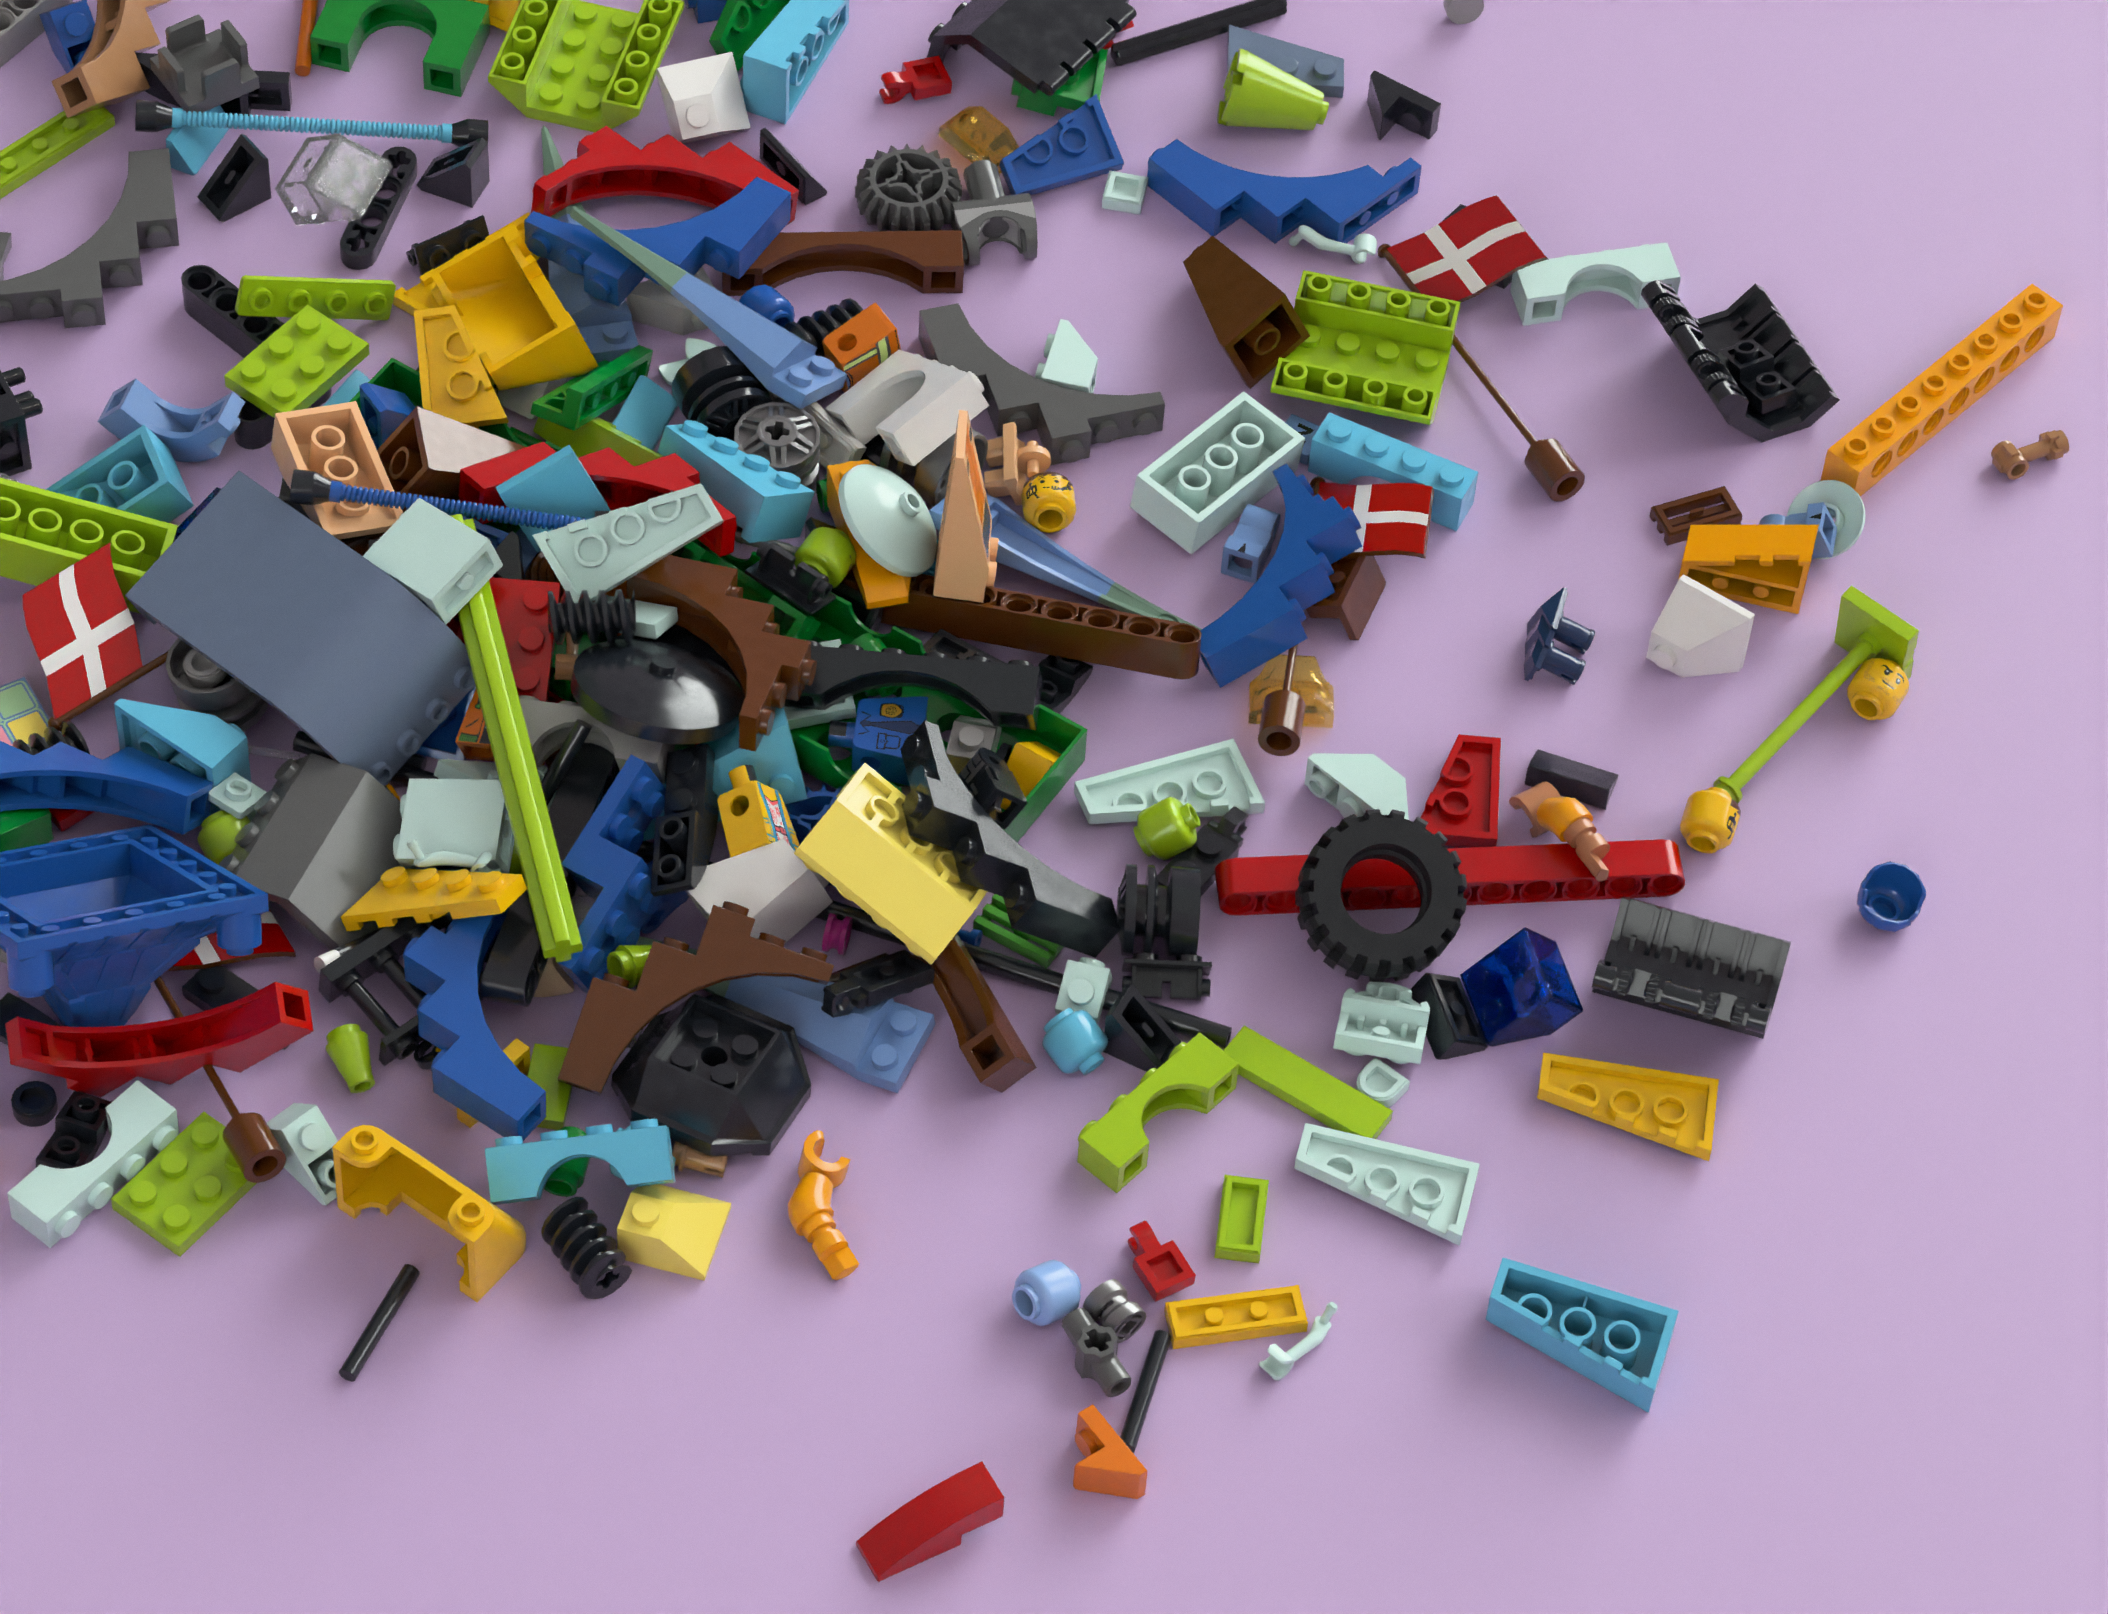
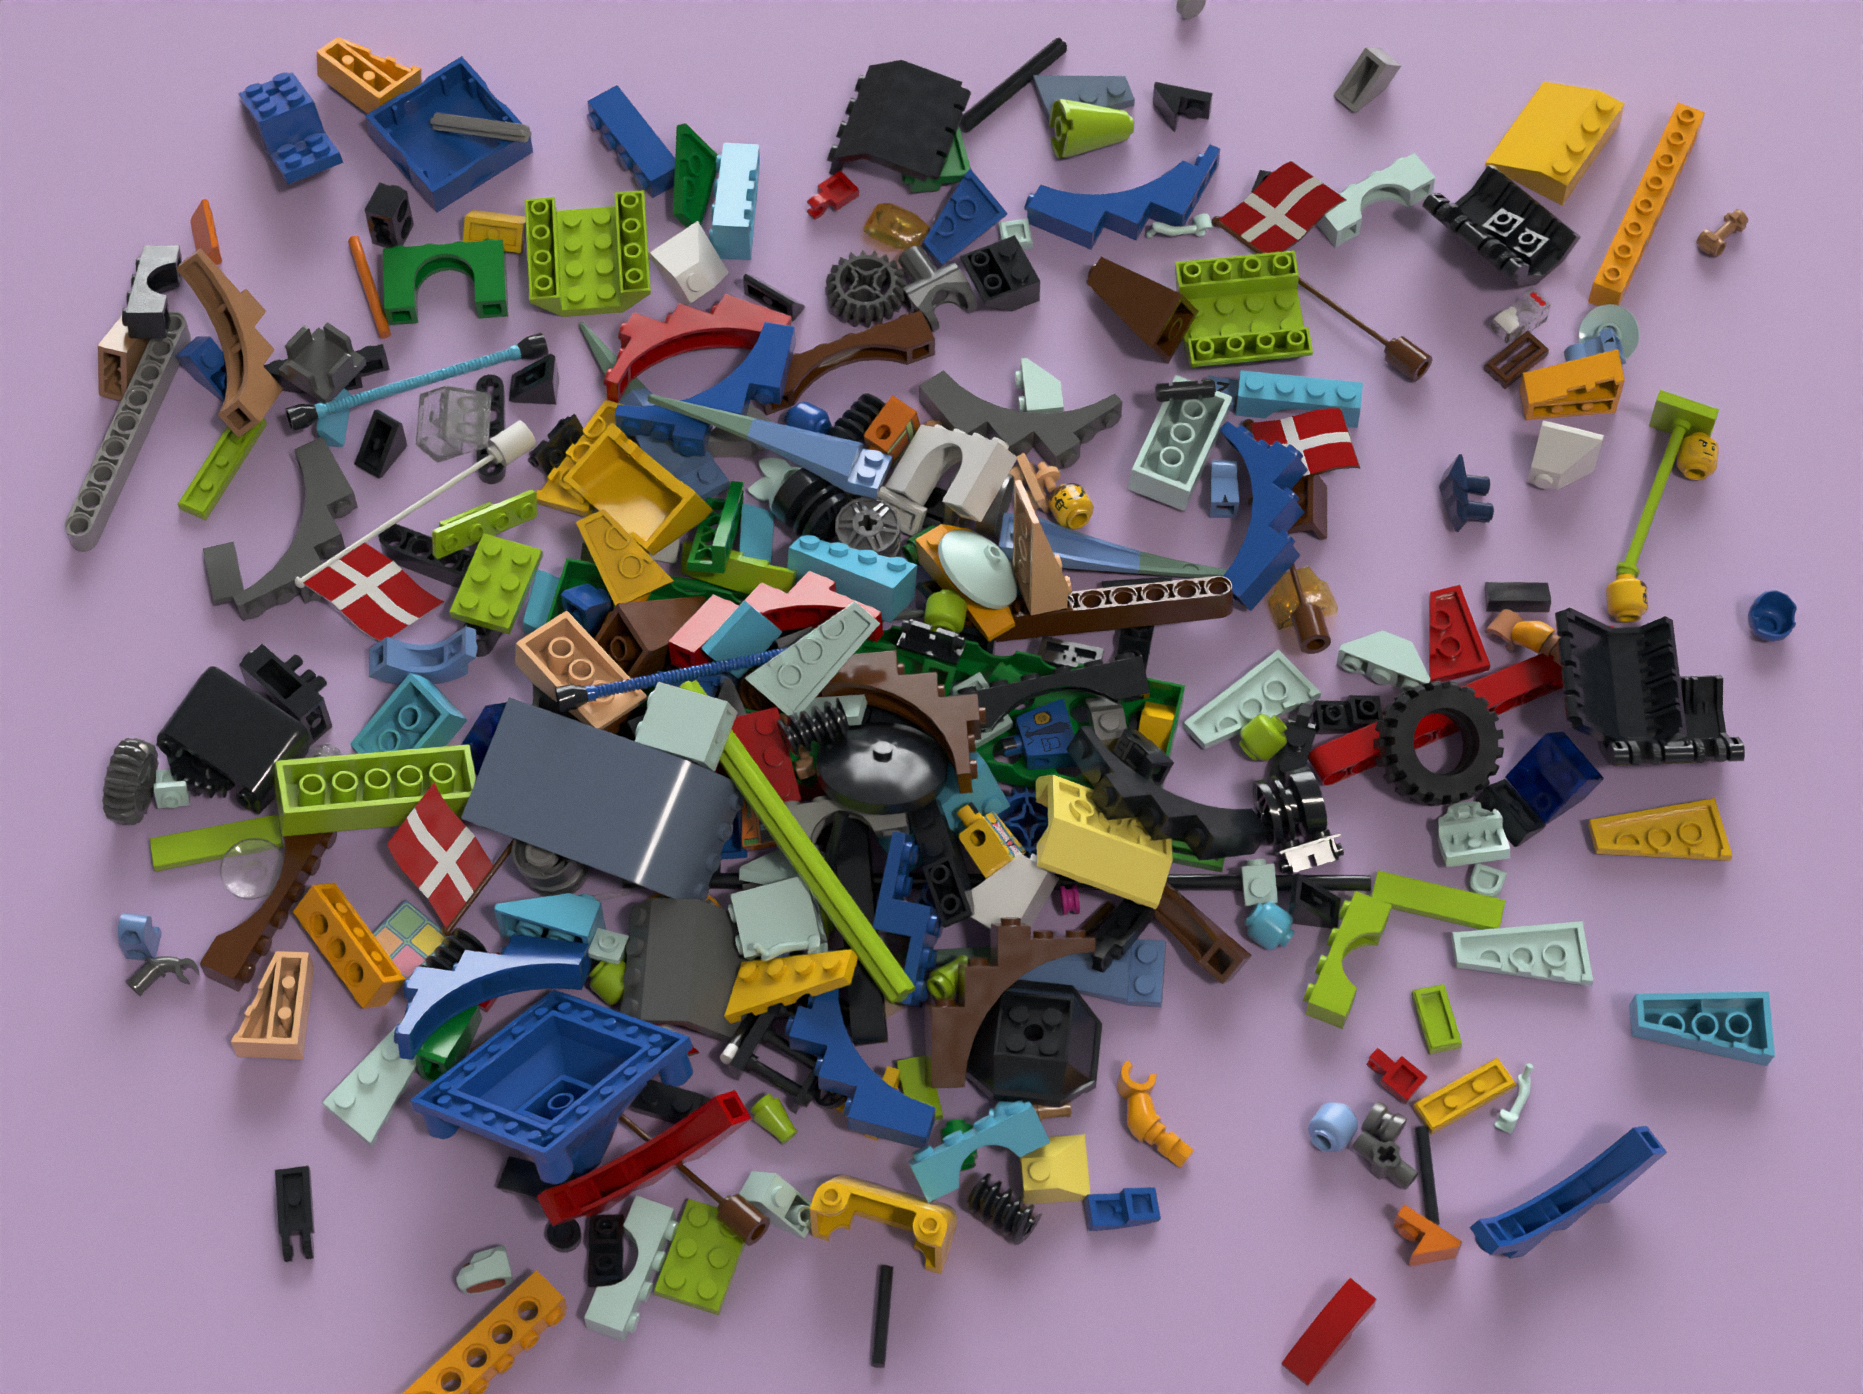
camera: 15 degrees left, 10 degrees up
(150, 328) = (374, 588): none -> flag
(744, 1304) = (1122, 1209): none -> blue slope
(1083, 225) = (1003, 275): none -> black slope
(1245, 409) = (1185, 390): none -> black axle
(1277, 838) = (1347, 715): none -> black slope
(1361, 1461) = (1563, 1204): none -> blue arch
(1644, 896) = (1620, 679): none -> black hinge
(1648, 148) = (1367, 78): none -> light grey slope
(1732, 466) = (1521, 316): none -> clear leg
(1865, 288) = (1557, 138): none -> yellow slope

